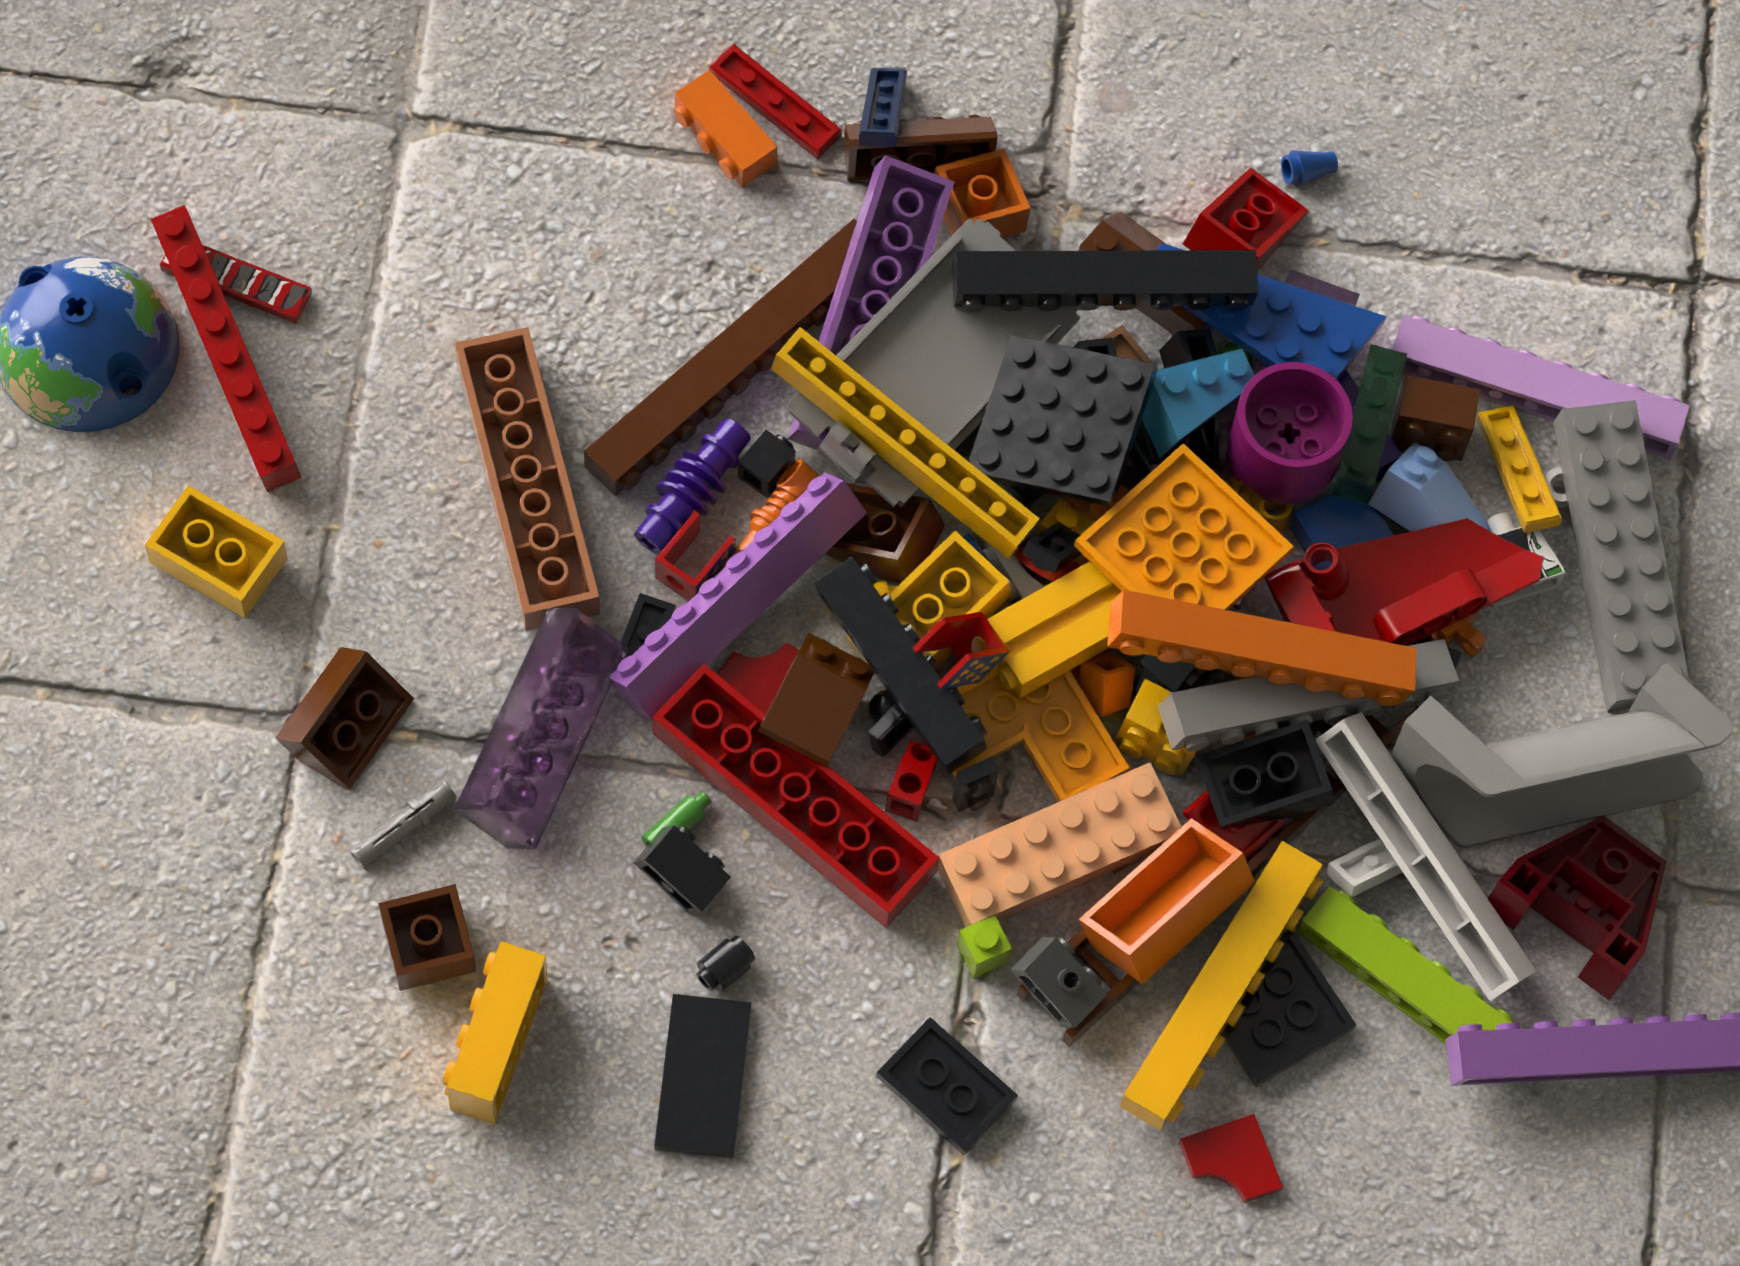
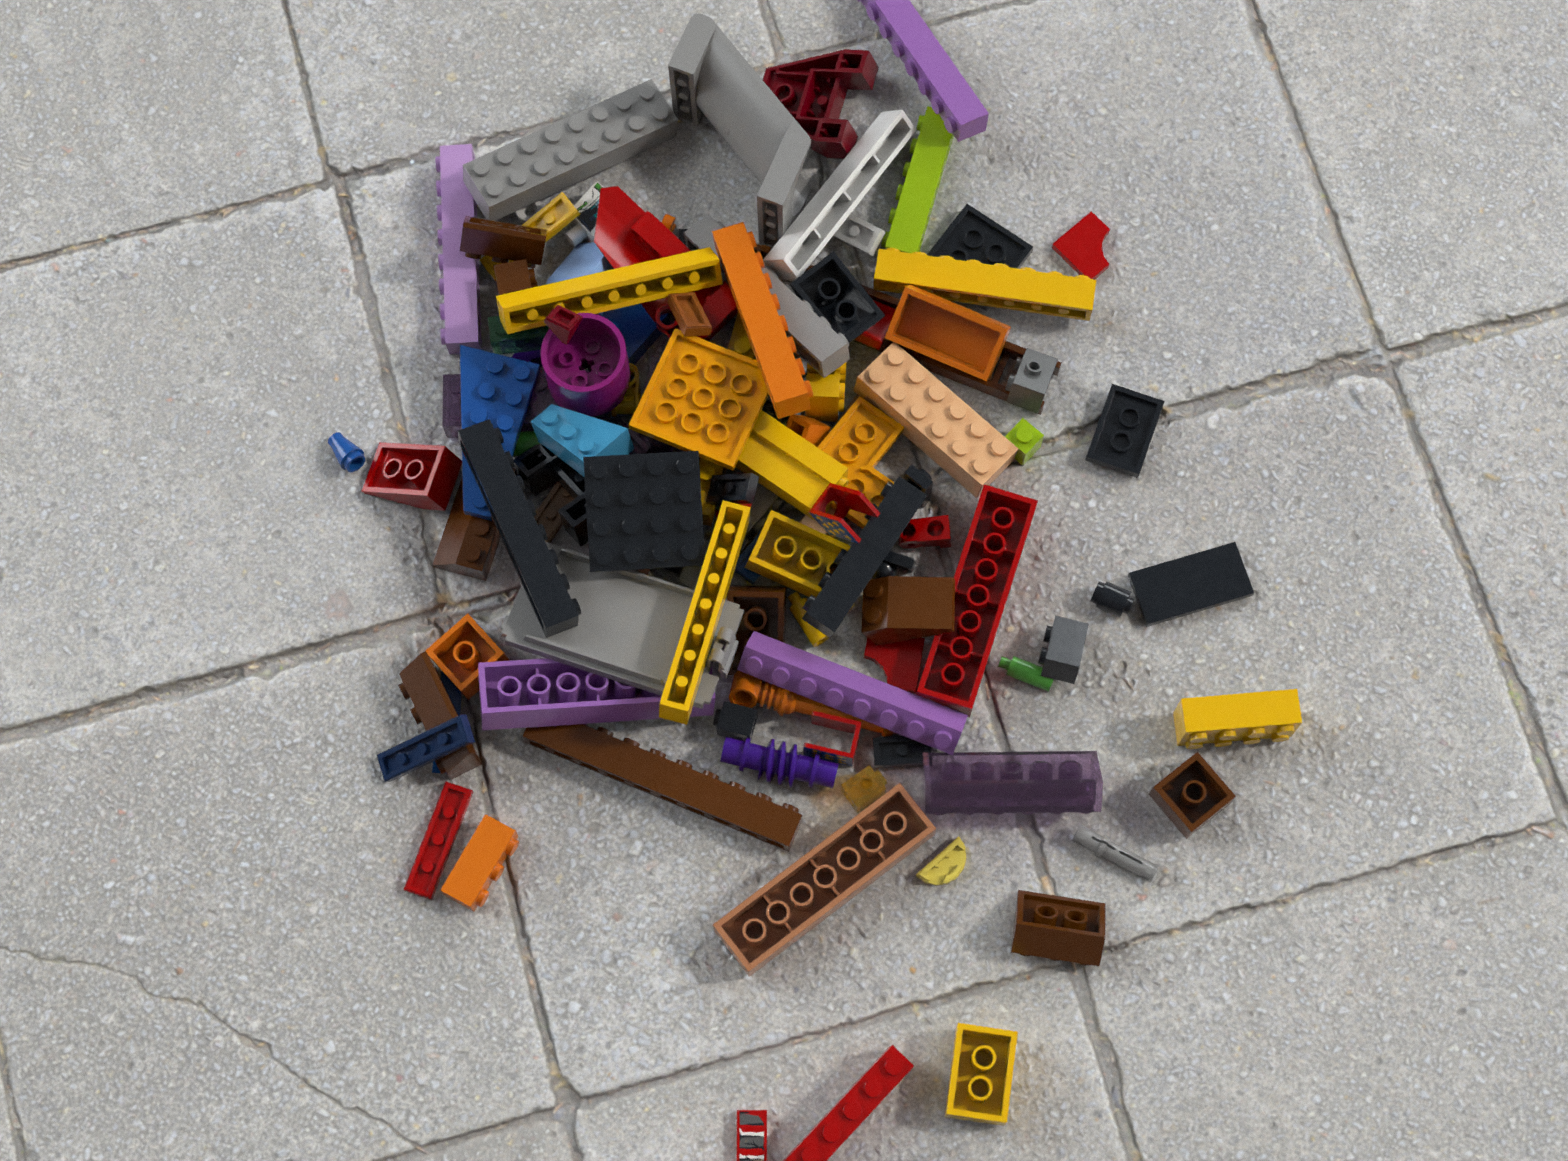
camera: 105 degrees left, 5 degrees up
(482, 629) = (946, 865): none -> light yellow tile
(617, 570) = (864, 788): none -> clear yellow brick
(1308, 575) = (689, 314): none -> dark orange tile
(1342, 400) = (563, 323): none -> dark red slope
(1381, 492) = (611, 289): none -> yellow brick
(1516, 418) = (502, 241): none -> reddish brown slope

